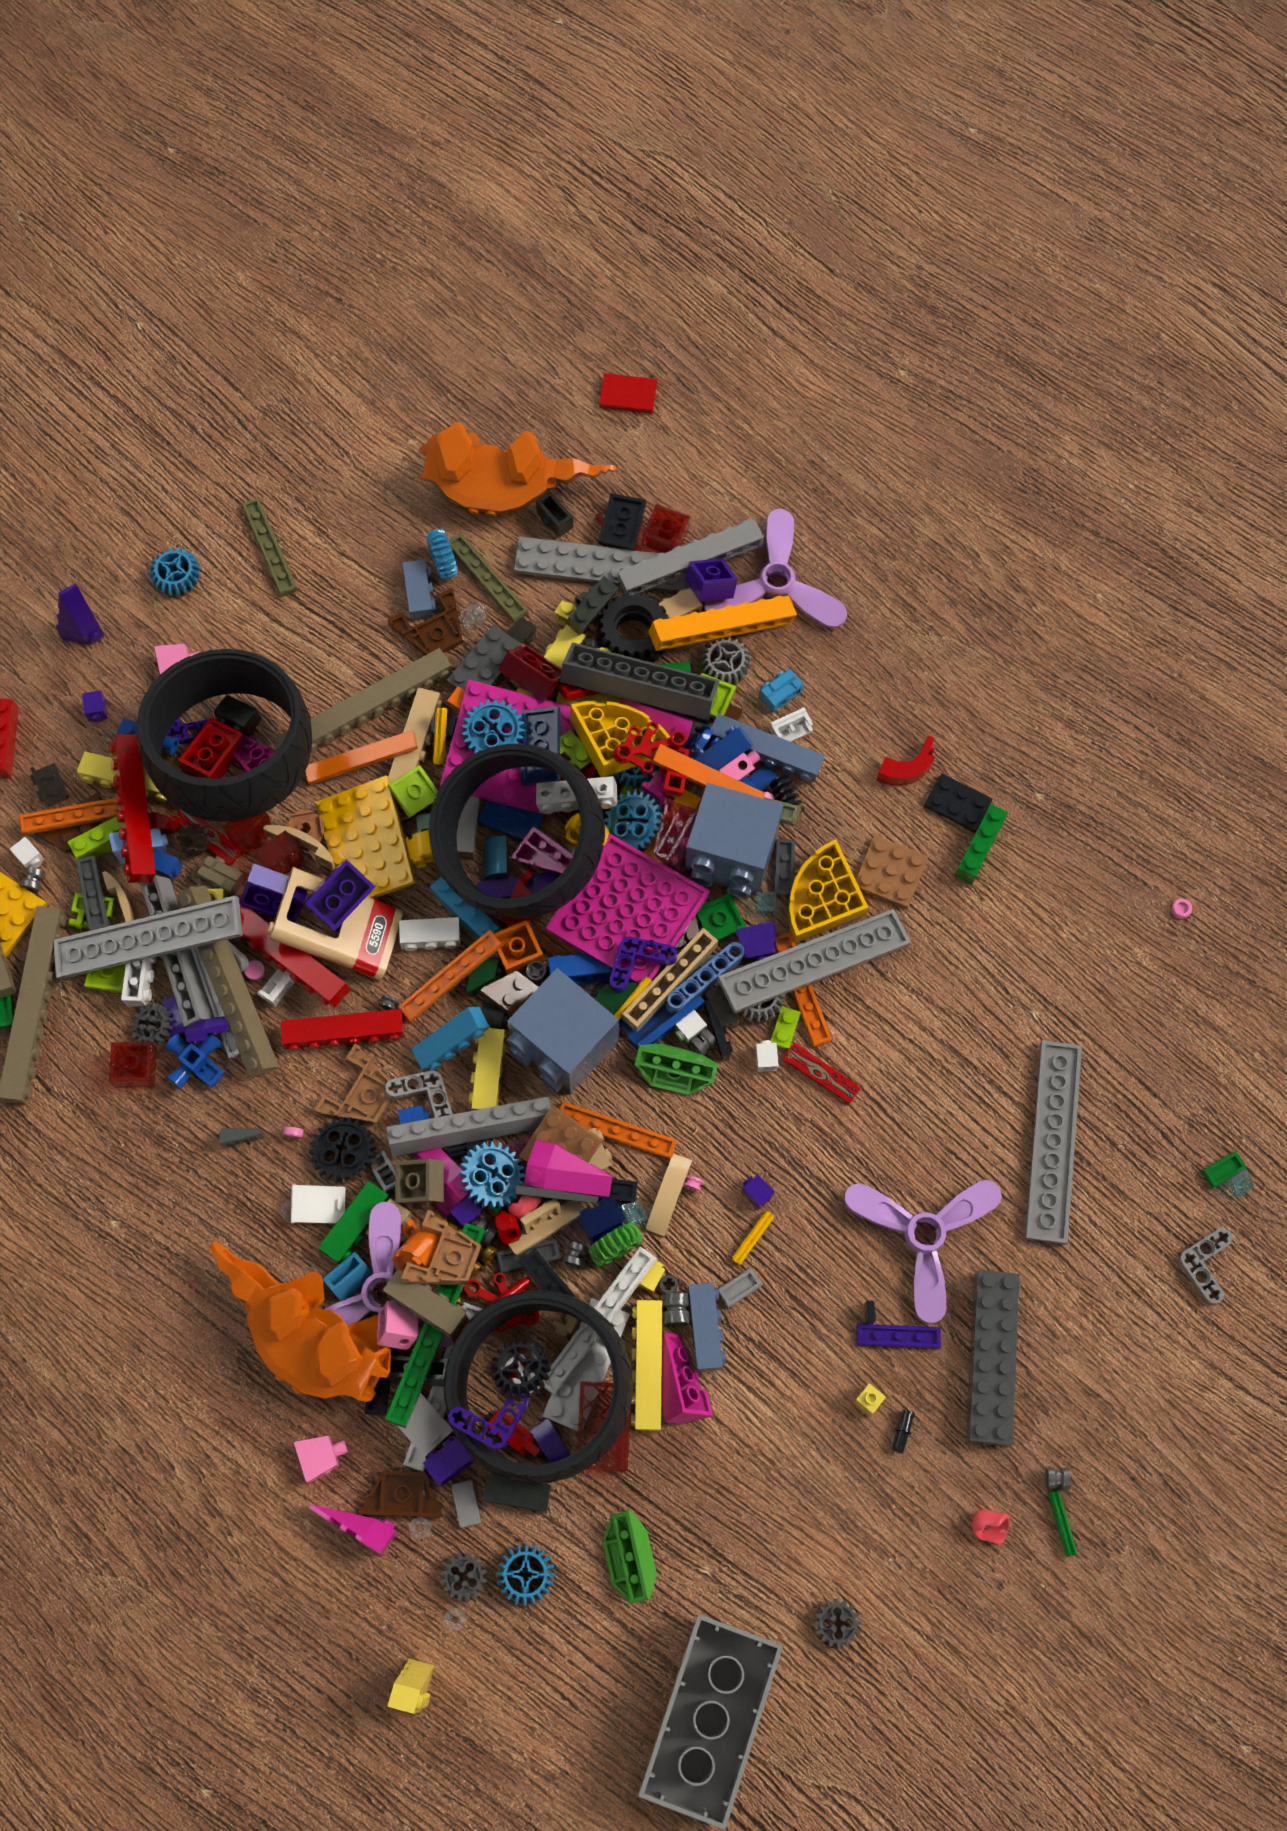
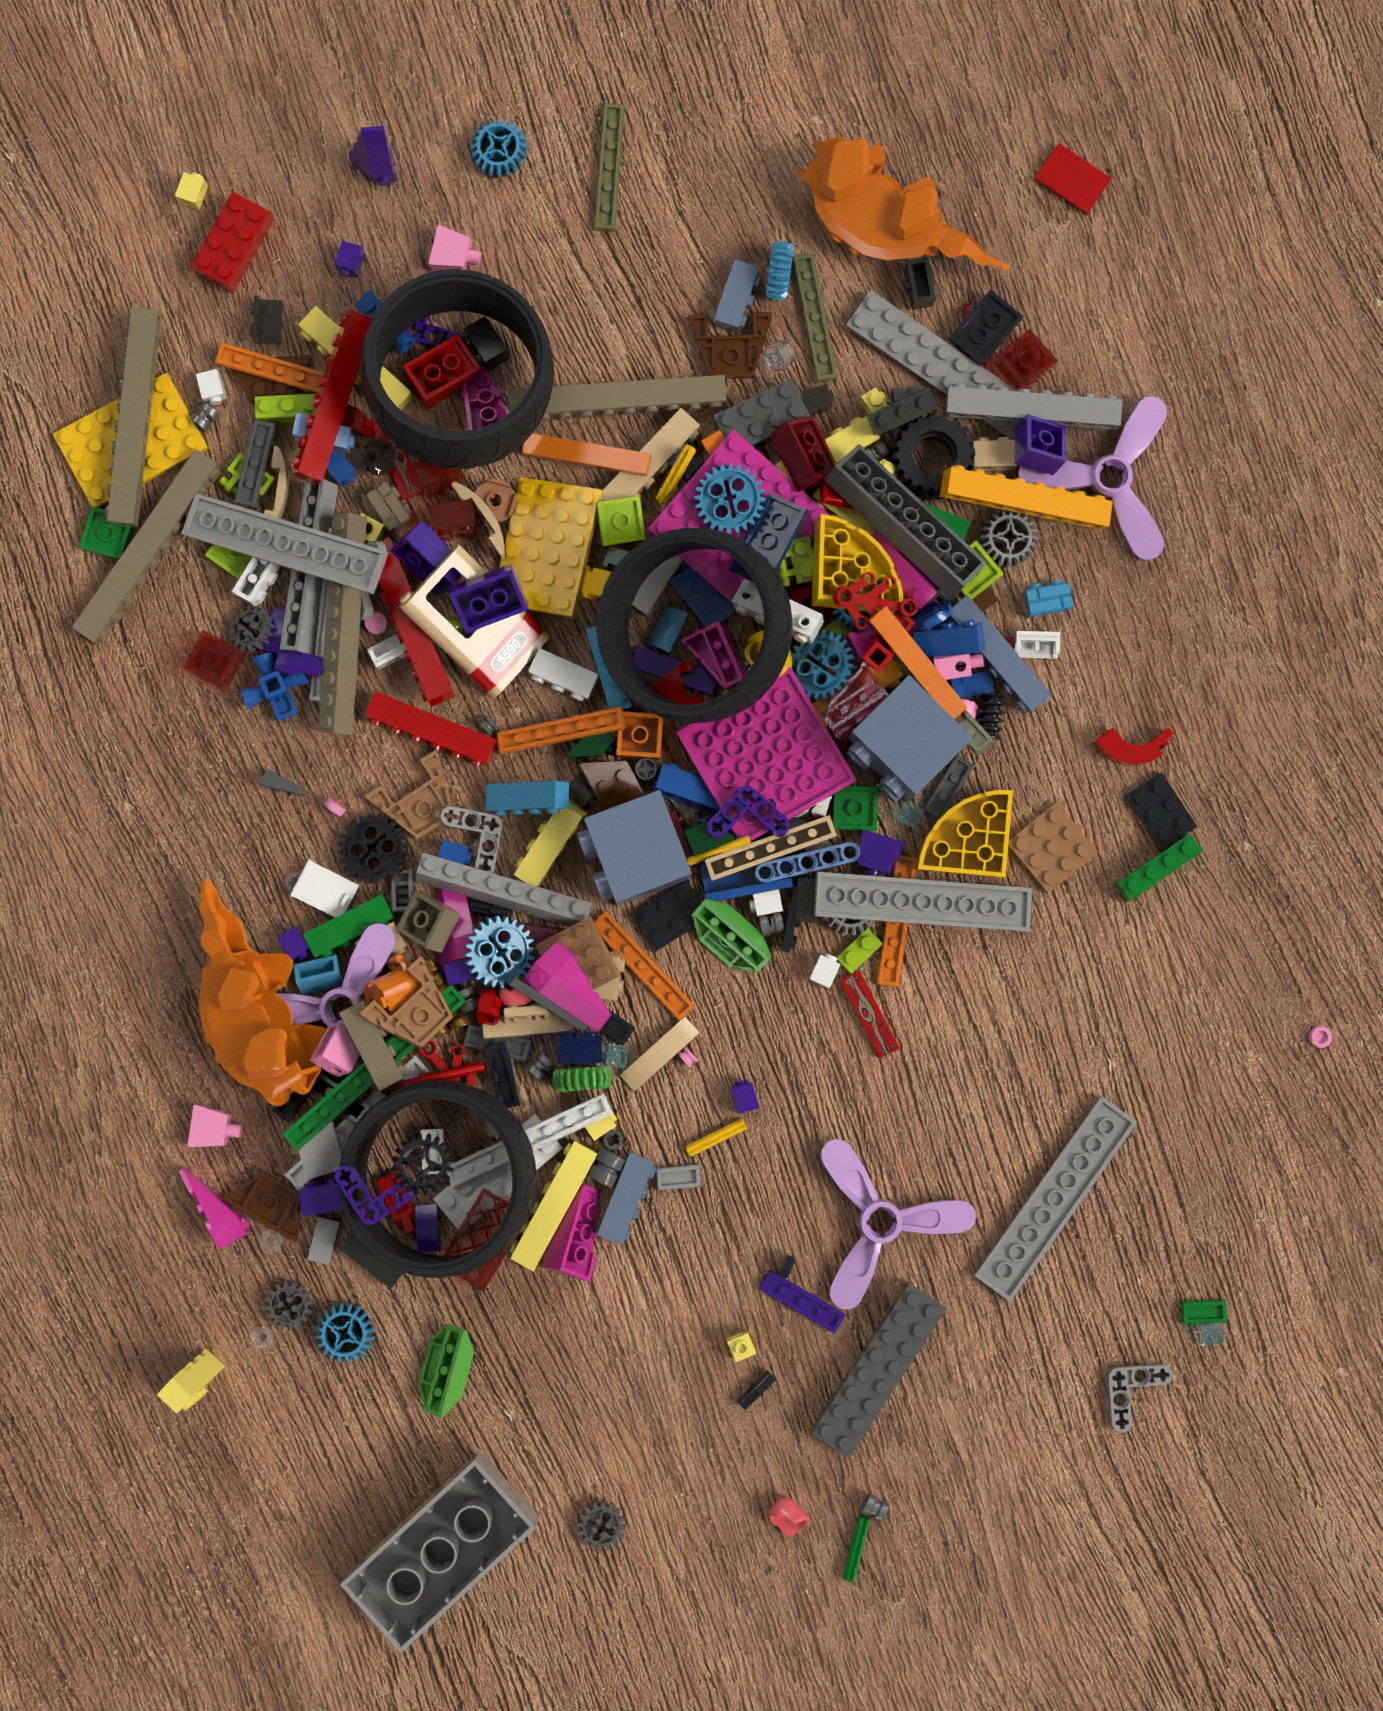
camera: 25 degrees right, 15 degrees up
(315, 1261) = (294, 944): none -> dark purple brick
(616, 1079) = (668, 916): none -> black plate

